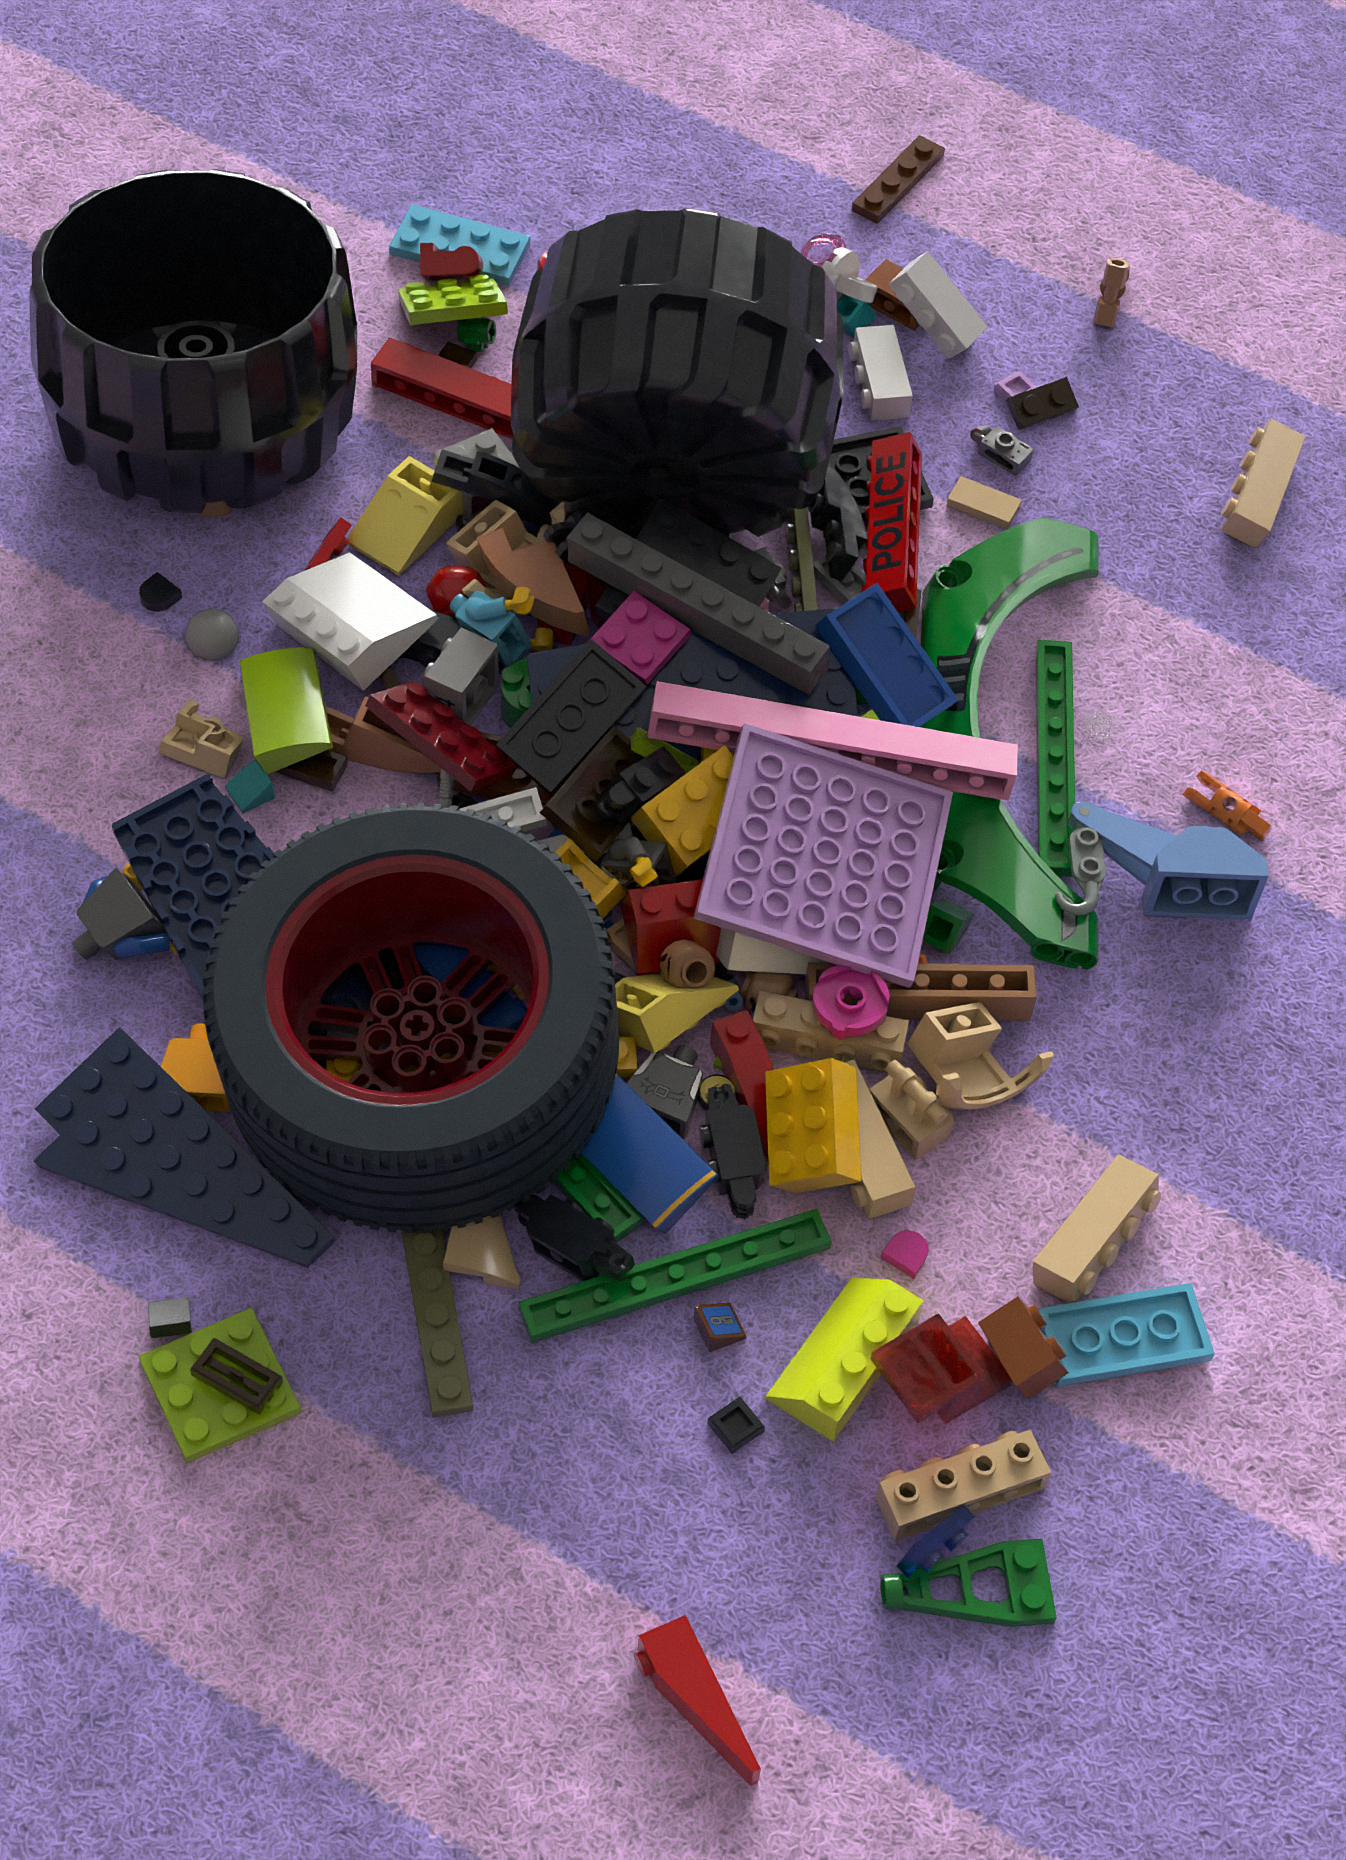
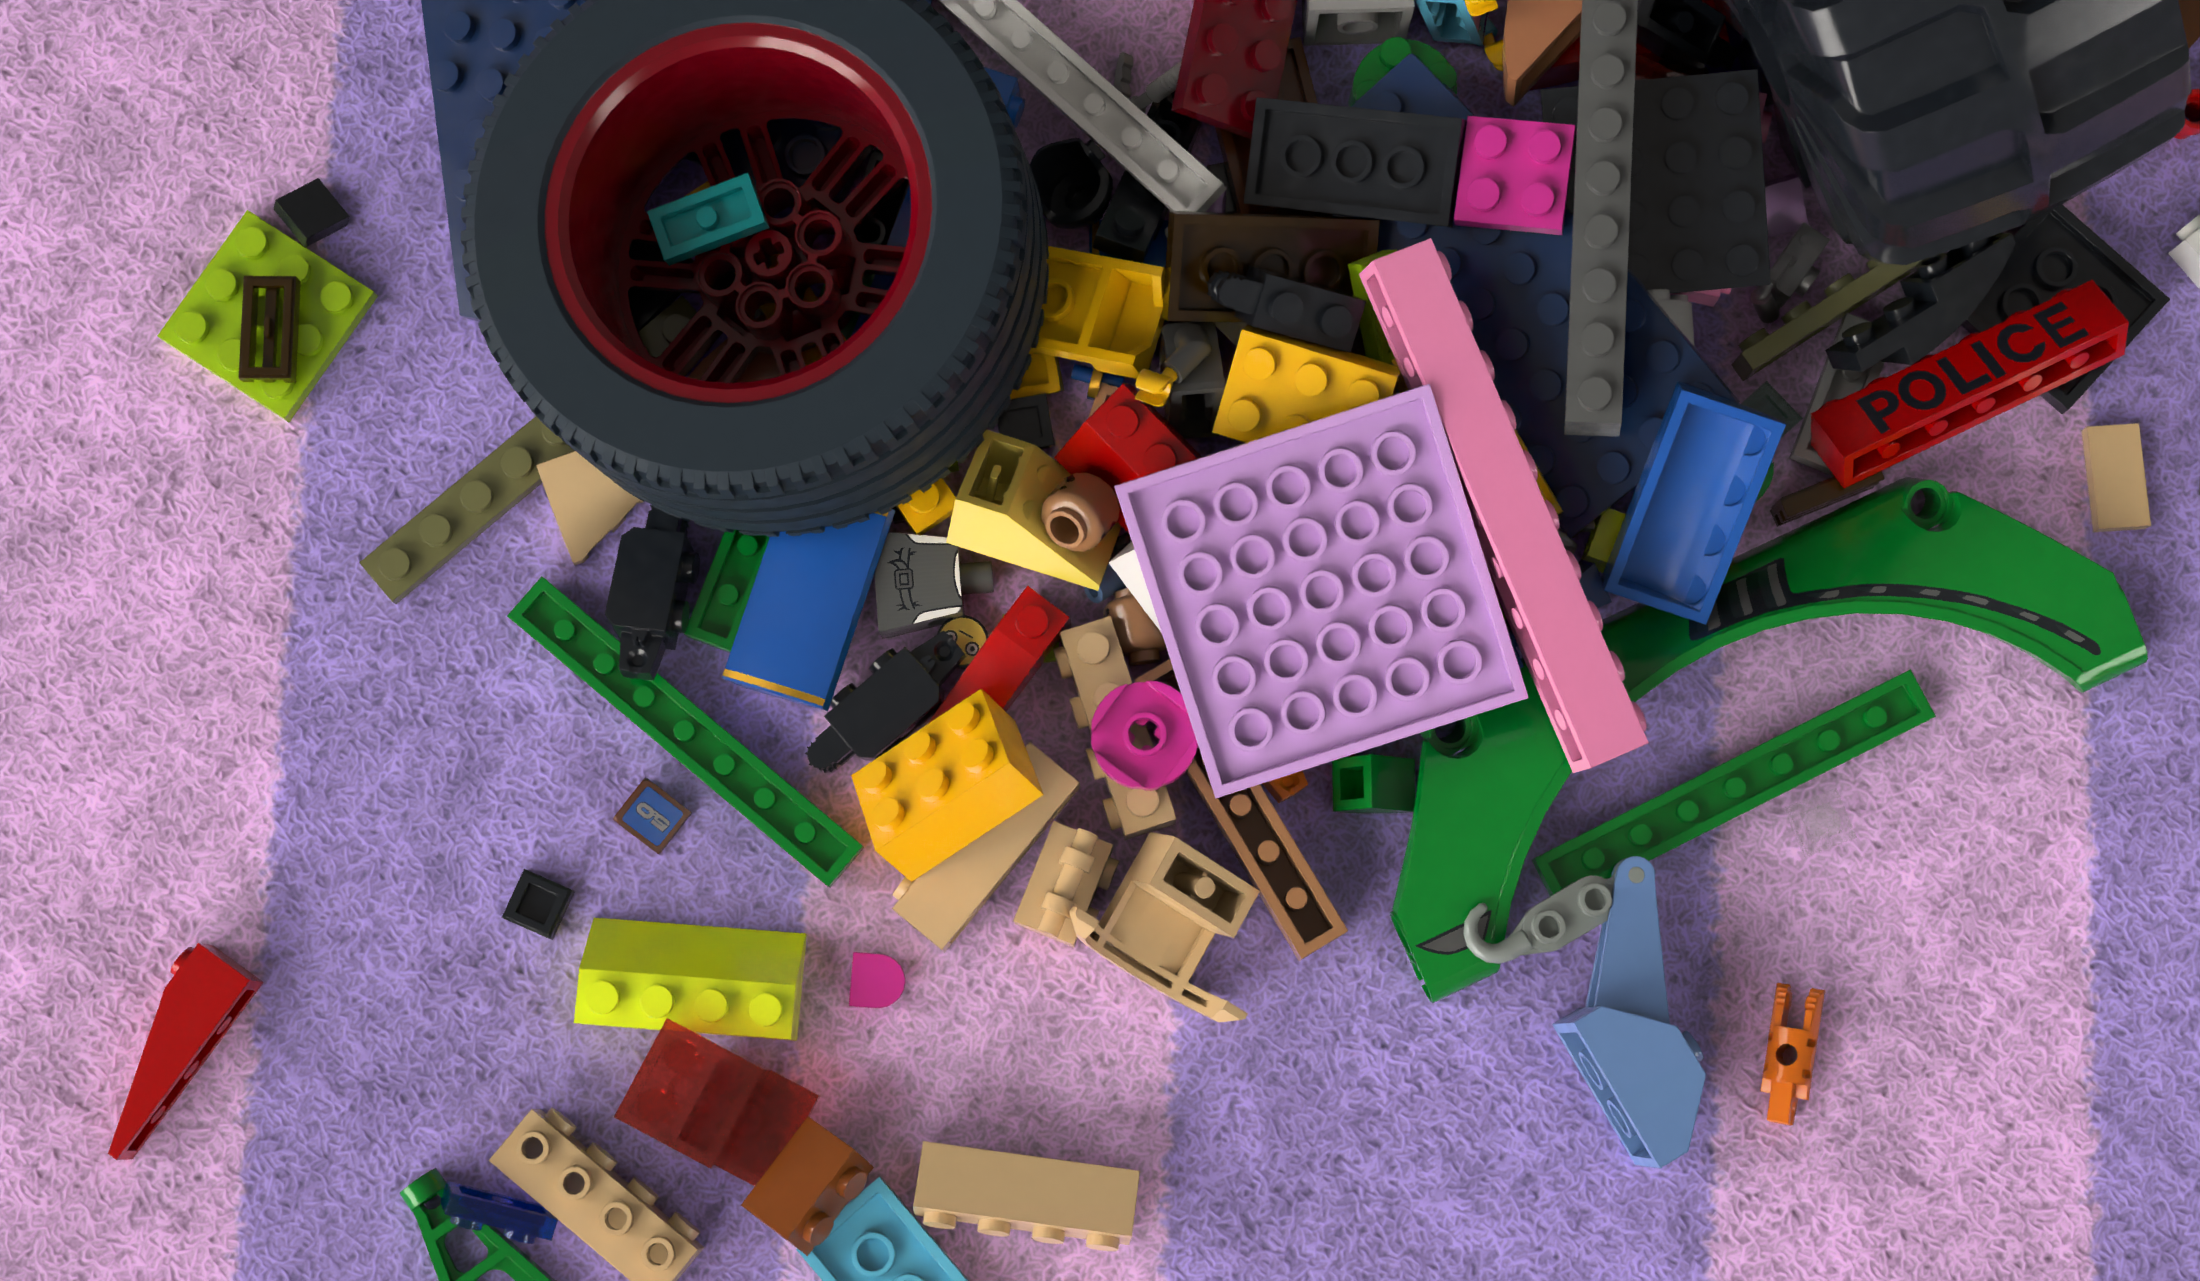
camera: 65 degrees right, 25 degrees up
(374, 1040) = (708, 219): none -> teal plate

